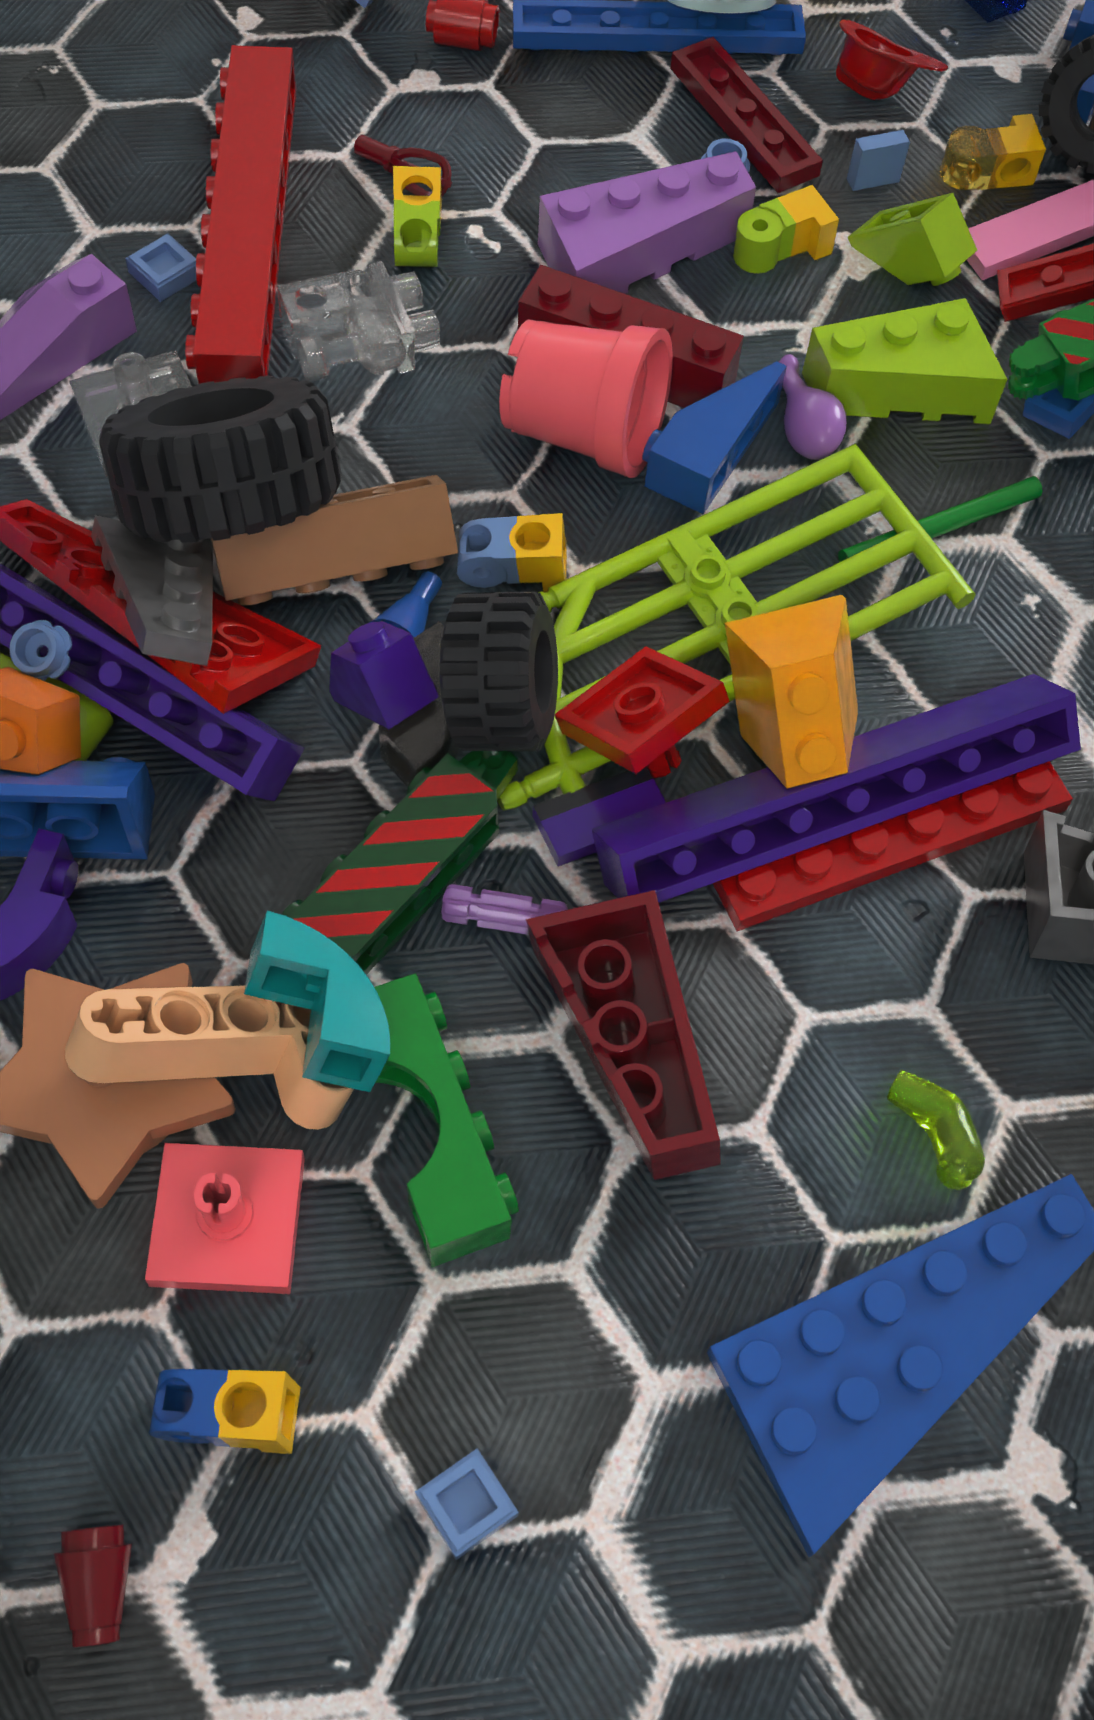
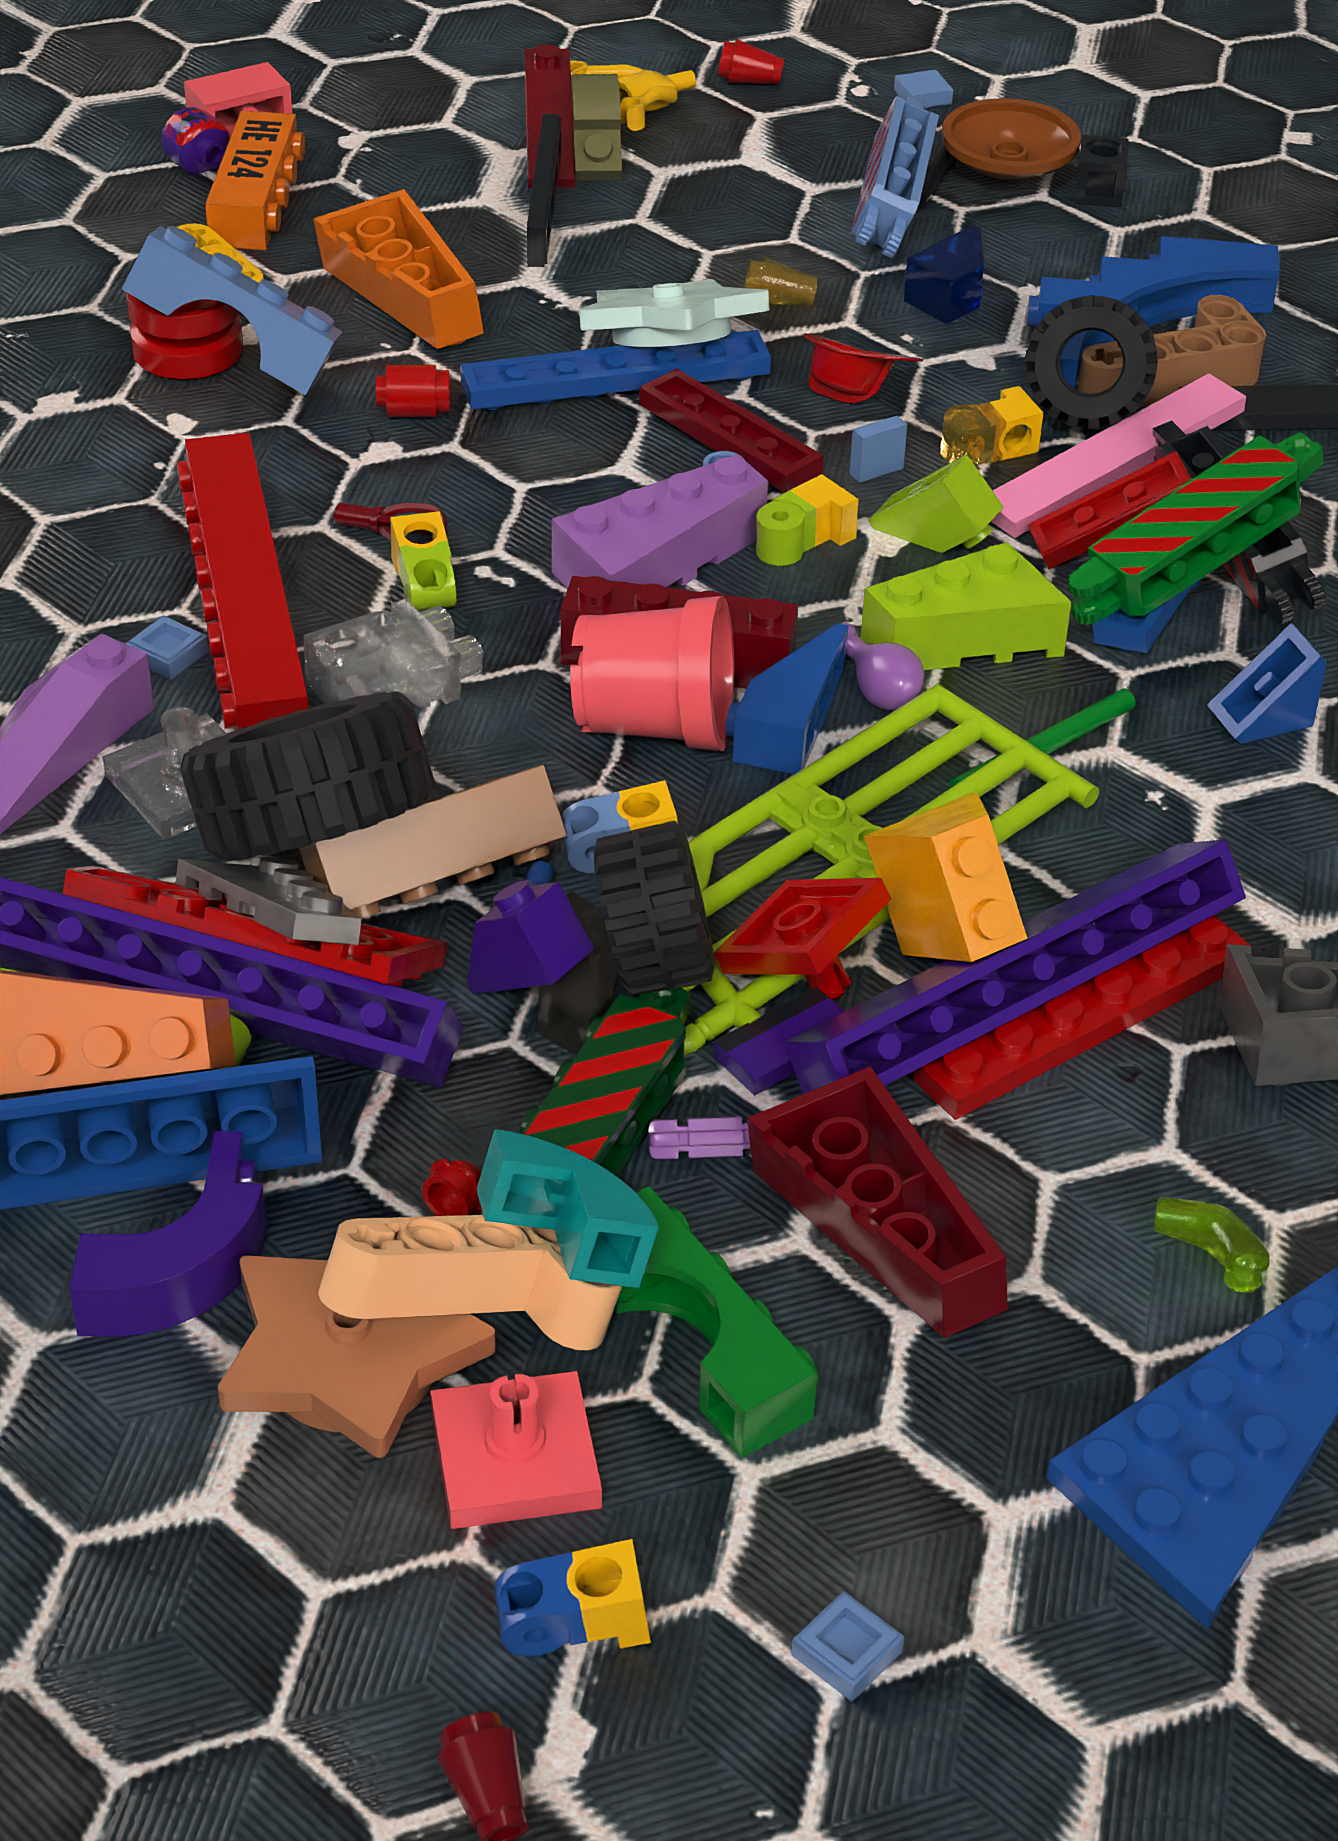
camera: 10 degrees left, 20 degrees down
(26, 648) = (169, 952): medium blue plate -> none
(244, 920) = (452, 1188): none -> red plate

